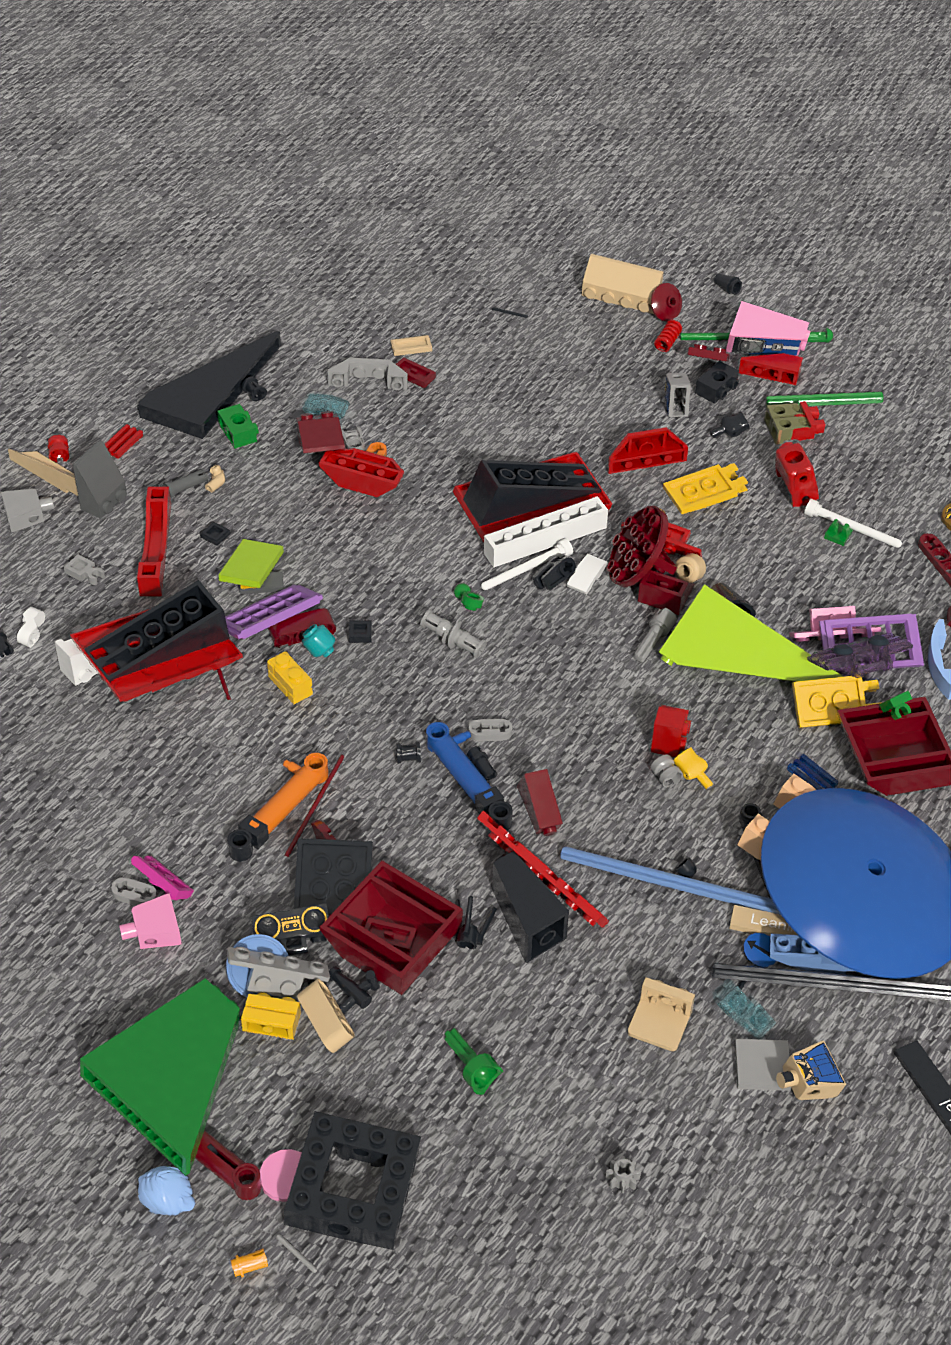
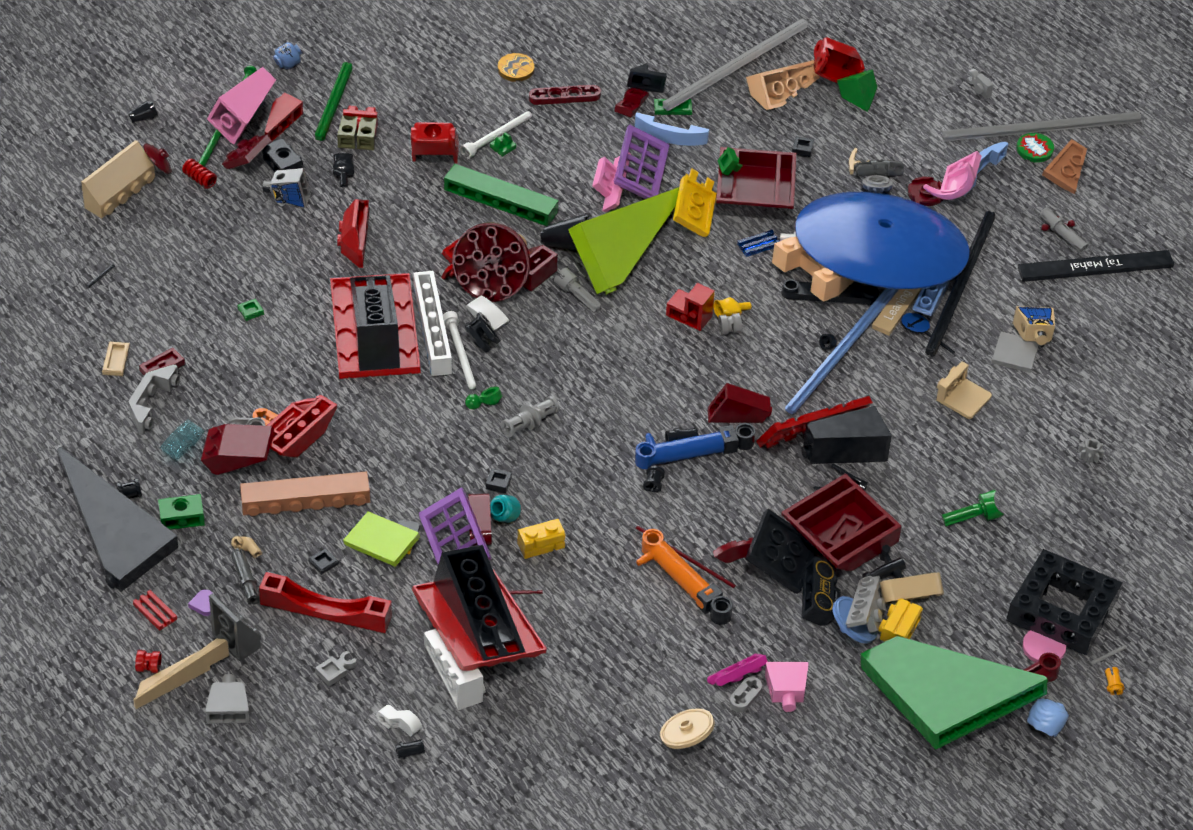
camera: 75 degrees left, 0 degrees up
(67, 847) = (687, 728): none -> tan shield
(140, 468) = (200, 603): none -> tile
(289, 499) = (305, 493): none -> brick
(490, 729) = (648, 423): light grey beam -> none
(512, 412) = (250, 309): none -> green tile
(705, 488) = (413, 210): yellow tile -> none
(746, 1014) = (971, 347): clear light blue slope -> none
(759, 546) = (501, 195): none -> brick
(862, 351) = (287, 55): none -> medium blue head
(871, 651) = (667, 166): clear purple piece -> none

